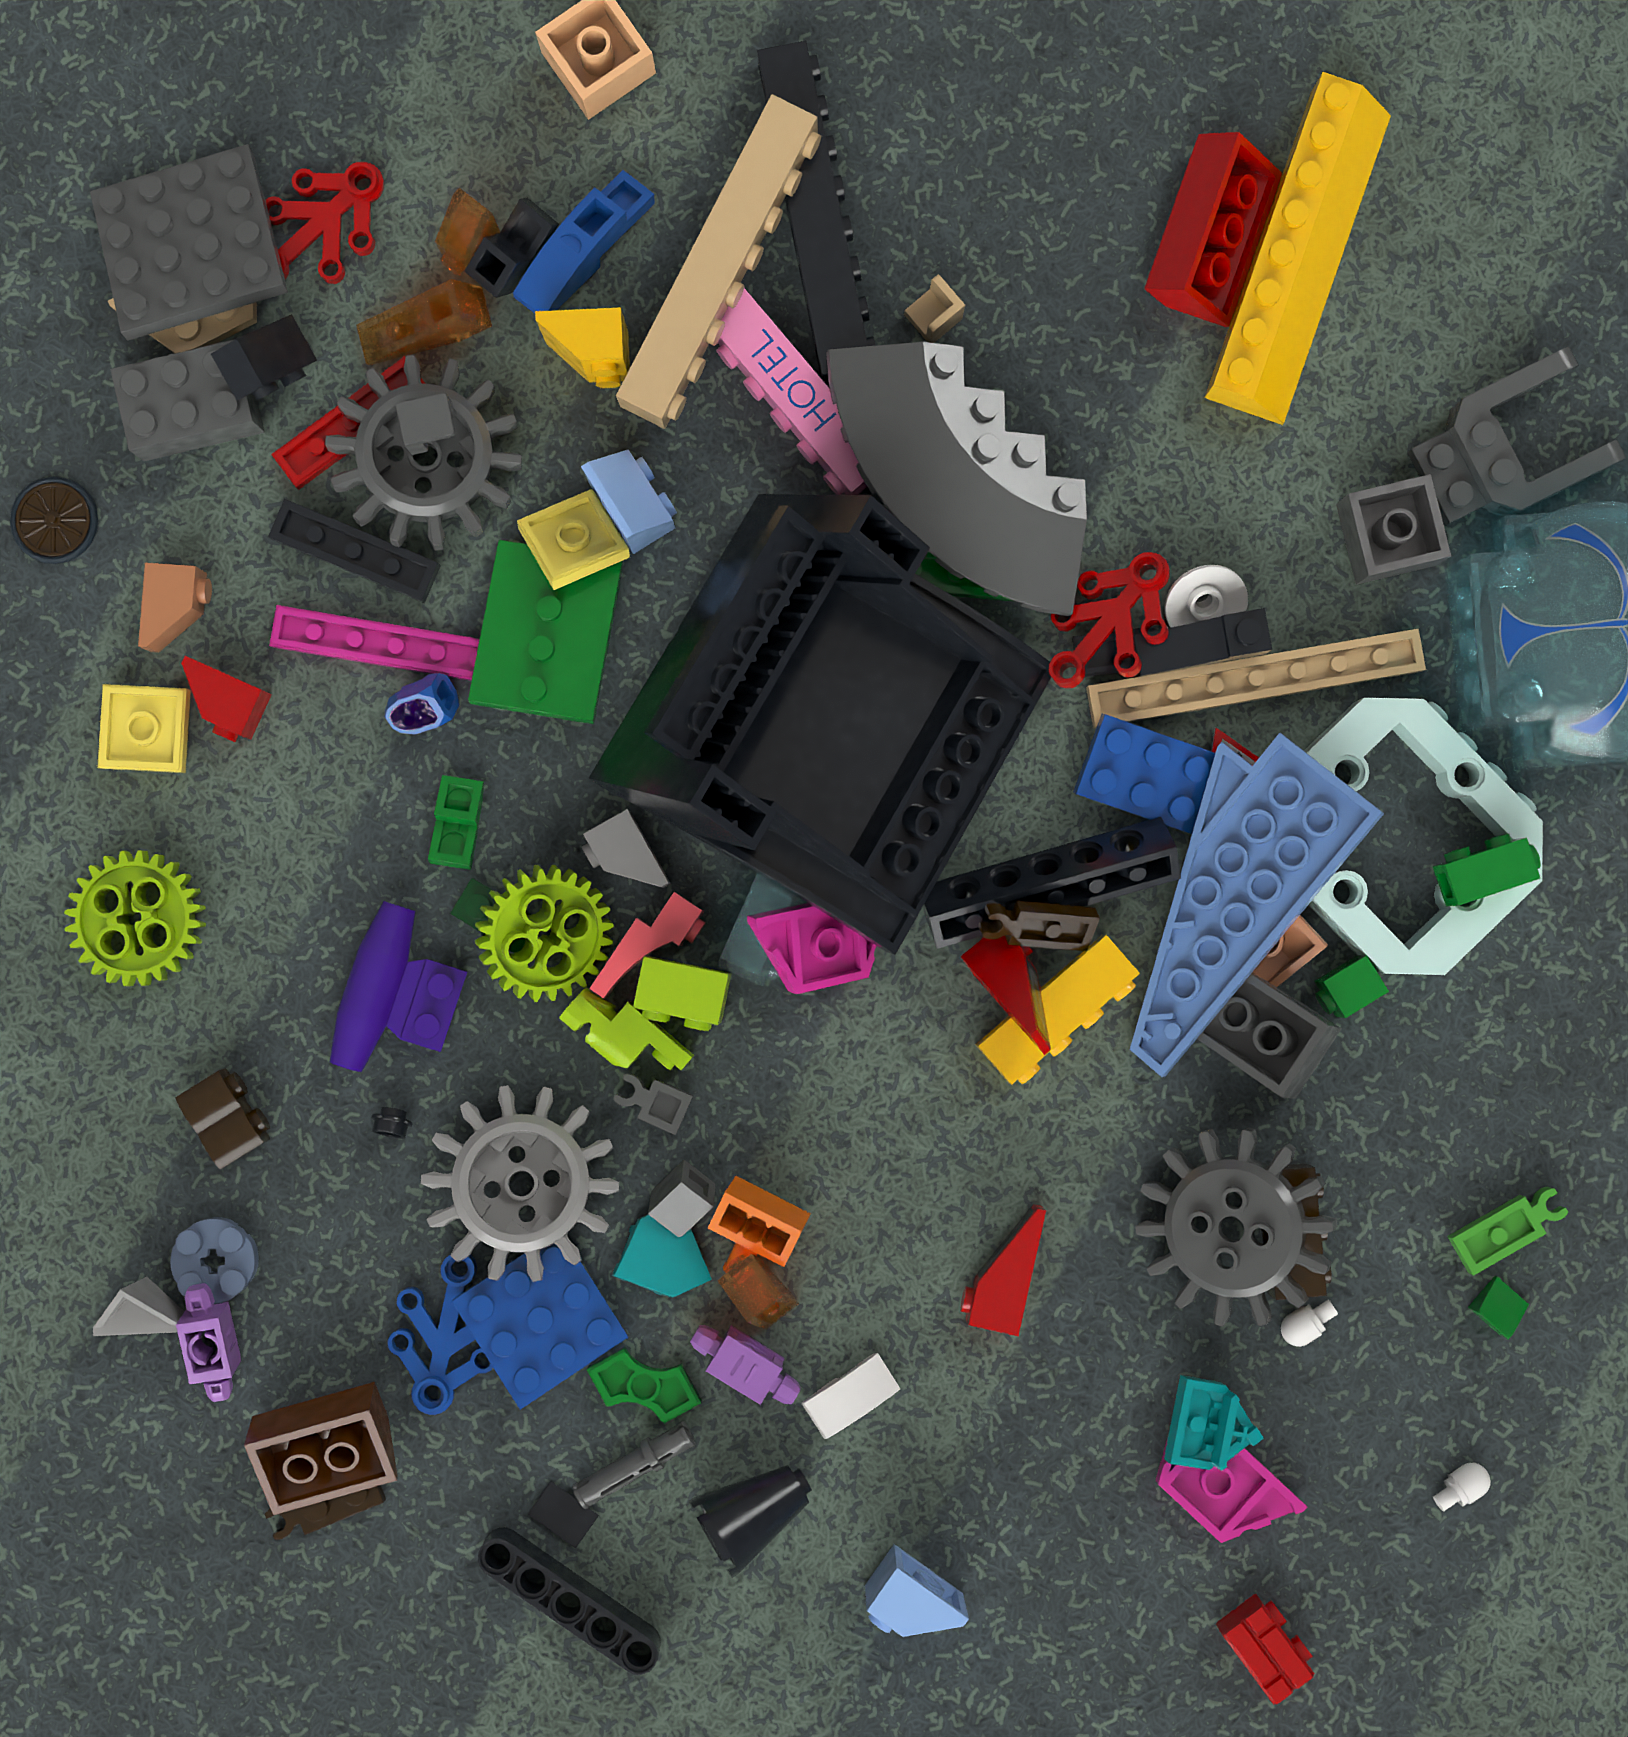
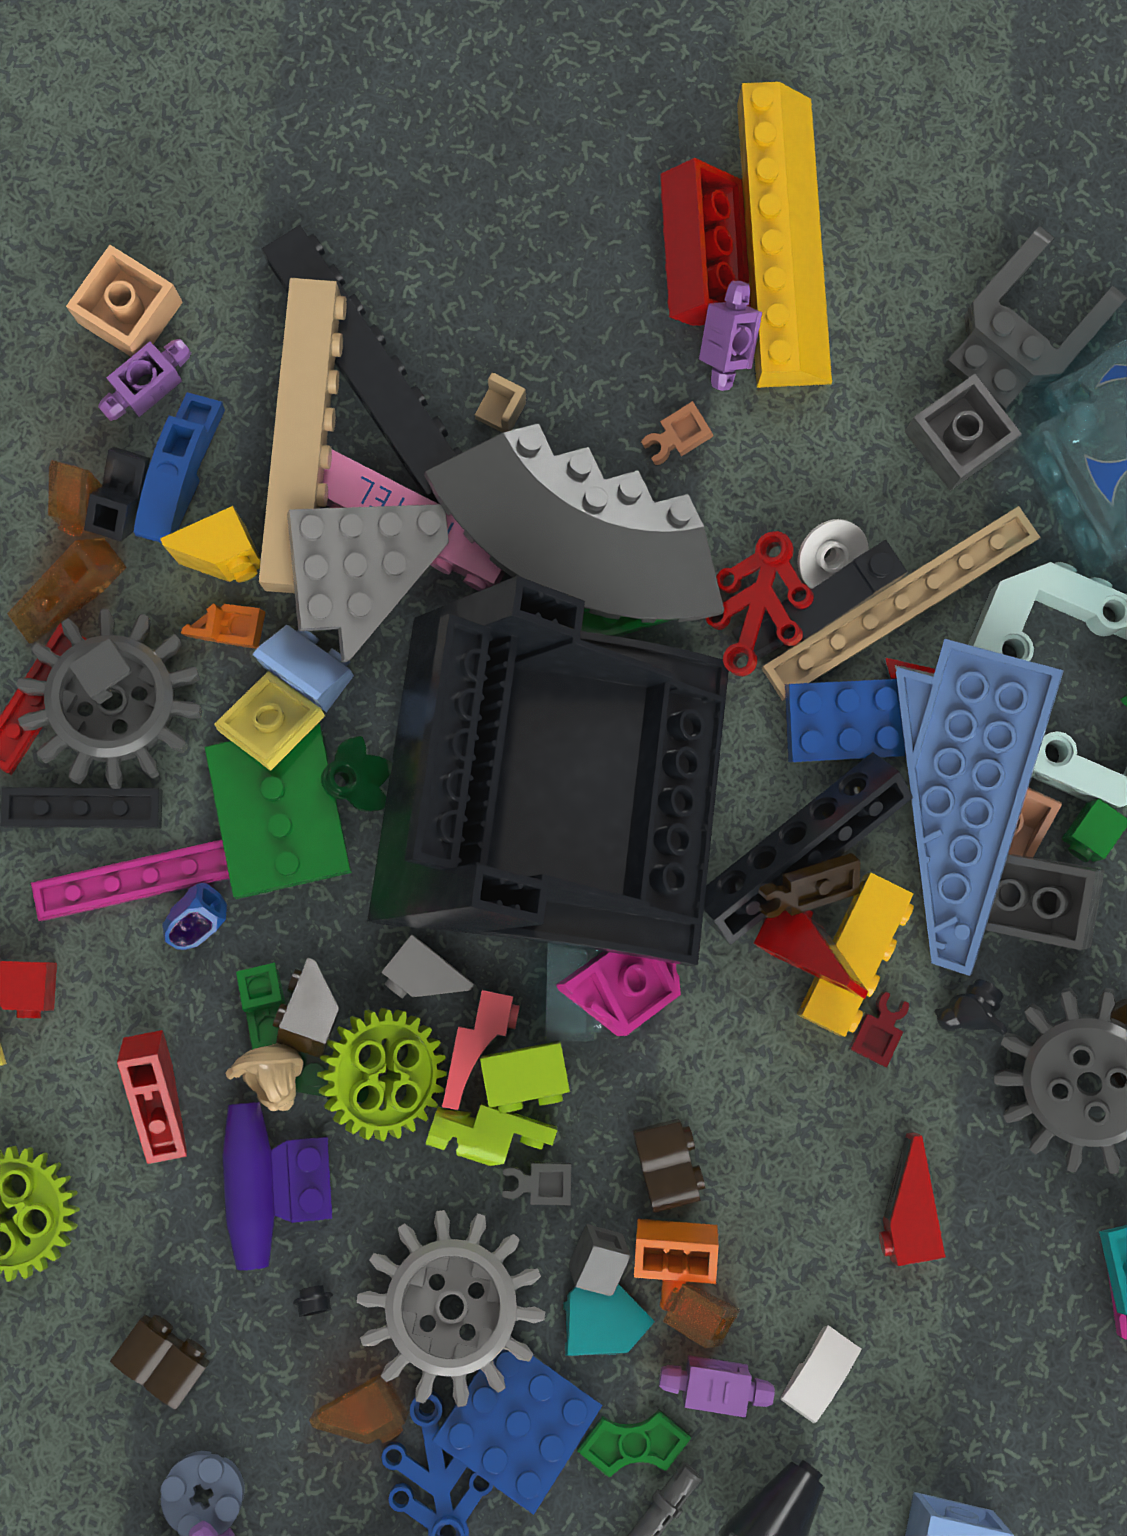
camera: 30 degrees left, 5 degrees down
(314, 861) = (152, 1095): none -> red slope
(397, 1248) = (363, 1413): none -> clear orange slope
(436, 888) = (270, 1074): none -> tan hair
(497, 845) = (310, 1014): none -> slope
(571, 427) = (229, 625): none -> orange slope
(587, 121) = (140, 364): none -> medium lavender piece
(642, 632) = (361, 774): none -> dark green plate
(724, 418) = (359, 564): none -> light grey wing
(785, 1136) = (667, 1164): none -> dark brown brick
(1045, 1098) = (876, 1035): none -> dark red plate
(1110, 413) = (683, 431): none -> nougat plate
(1151, 1111) = (973, 1010): none -> black animal
(1197, 333) = (730, 335): none -> medium lavender piece

